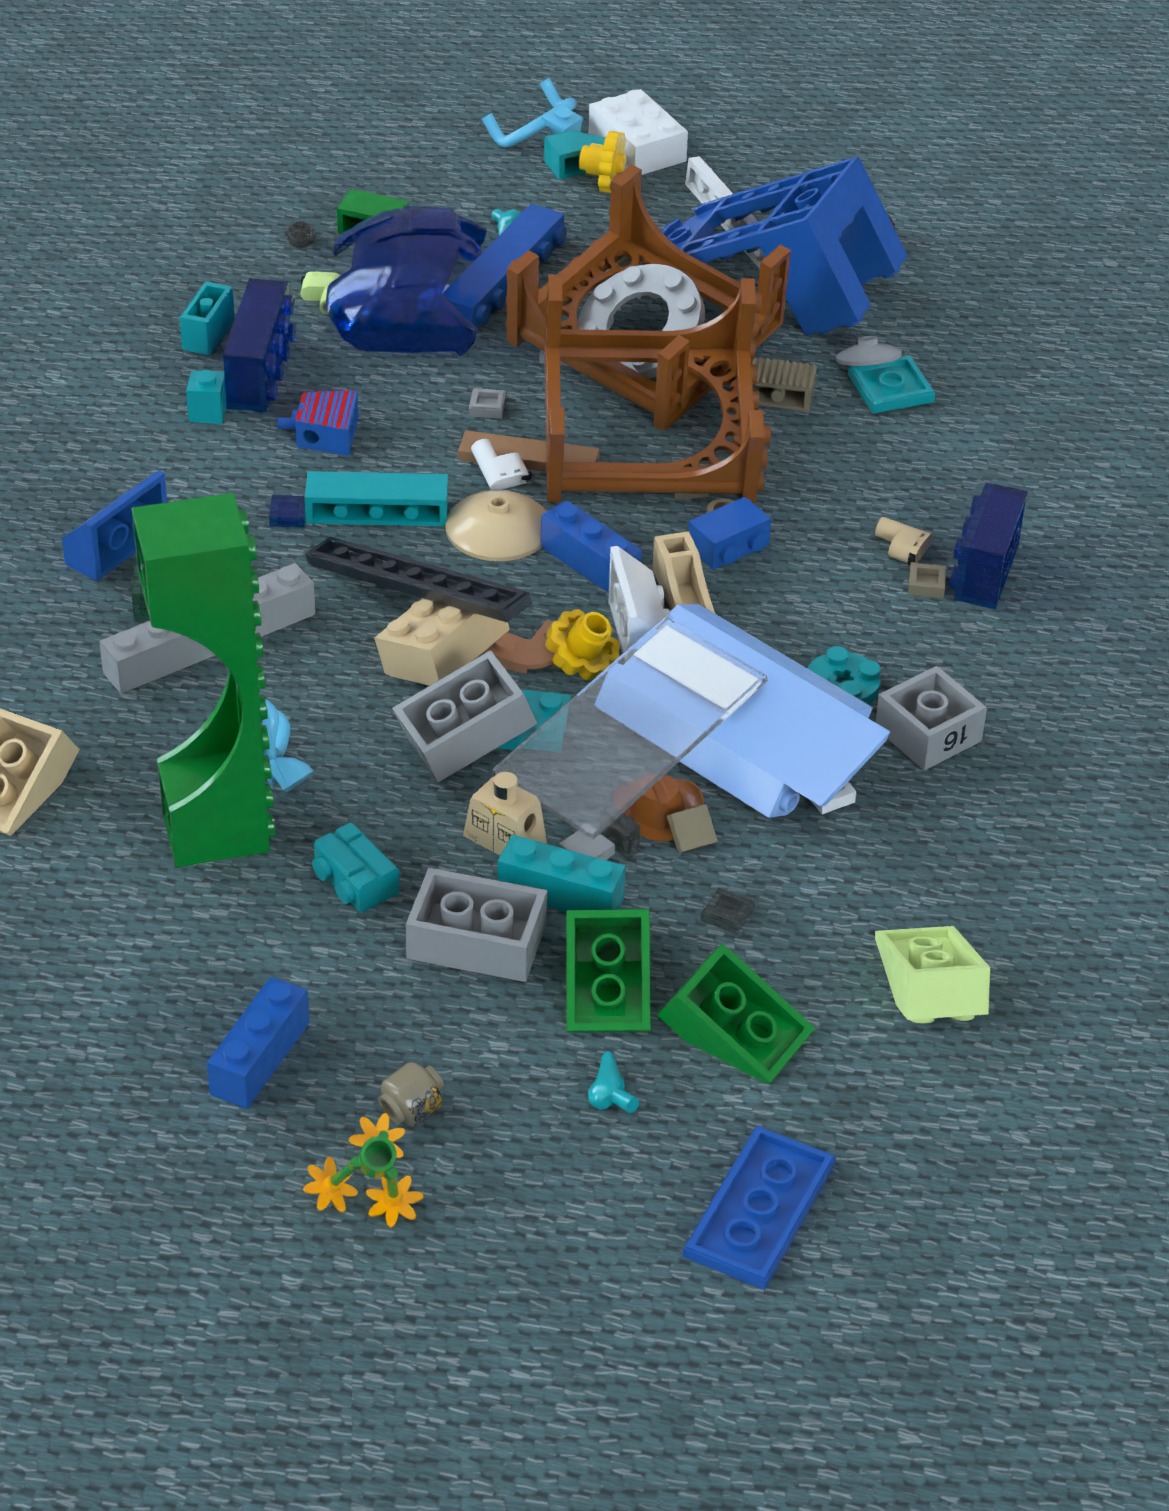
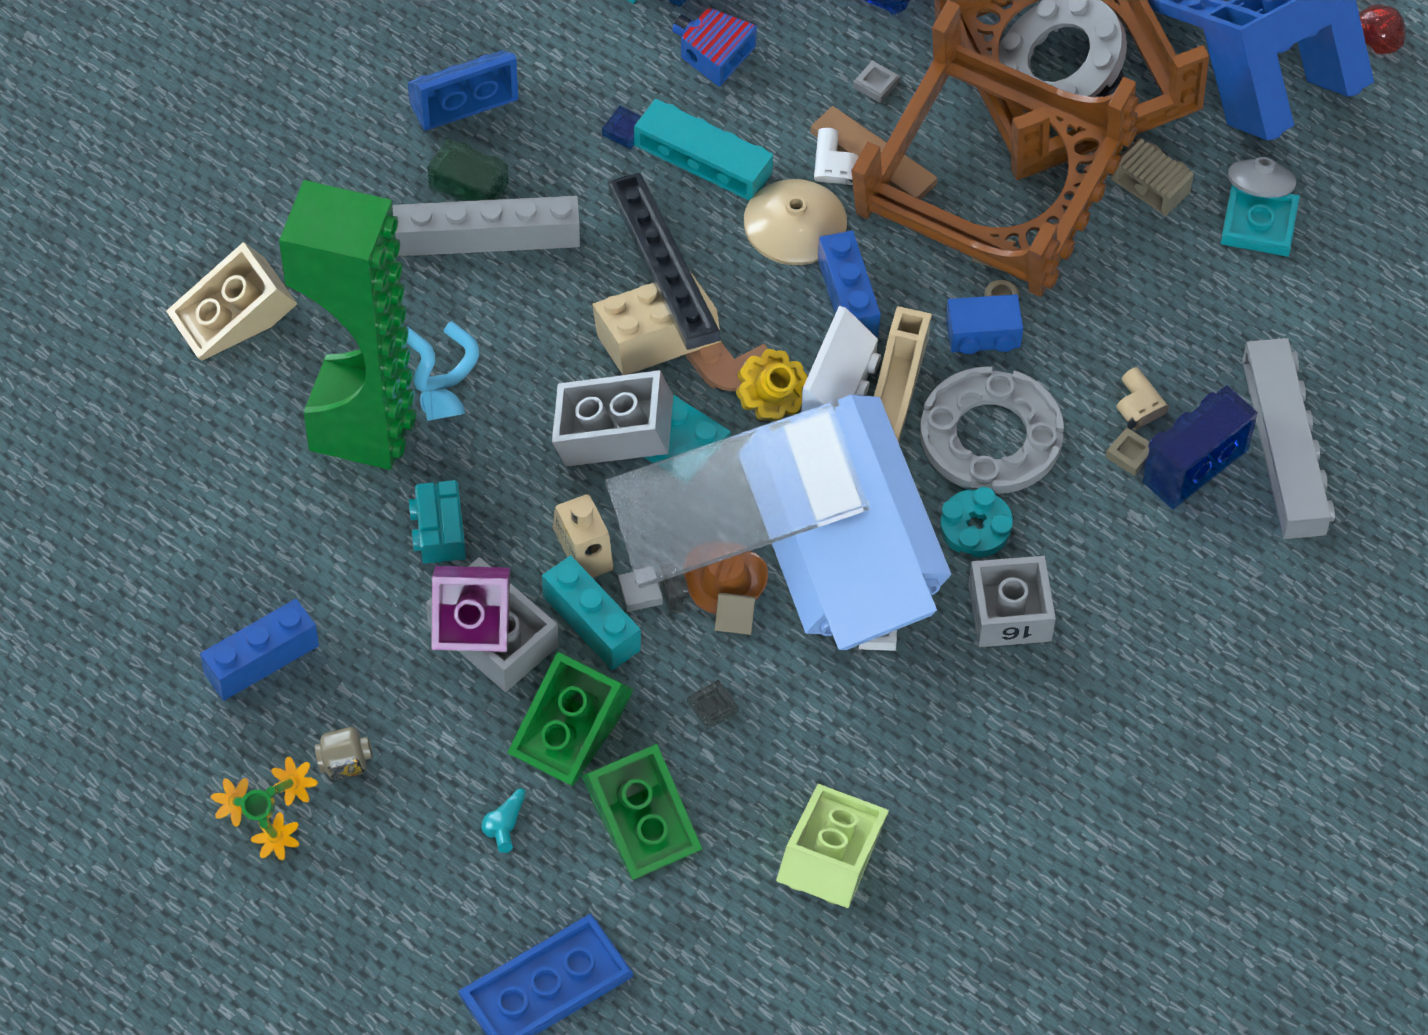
camera: 30 degrees right, 15 degrees up
(461, 904) = (470, 608): none -> magenta slope
(834, 582) = (988, 387): none -> light grey plate
(1055, 523) = (1287, 438): none -> light grey brick

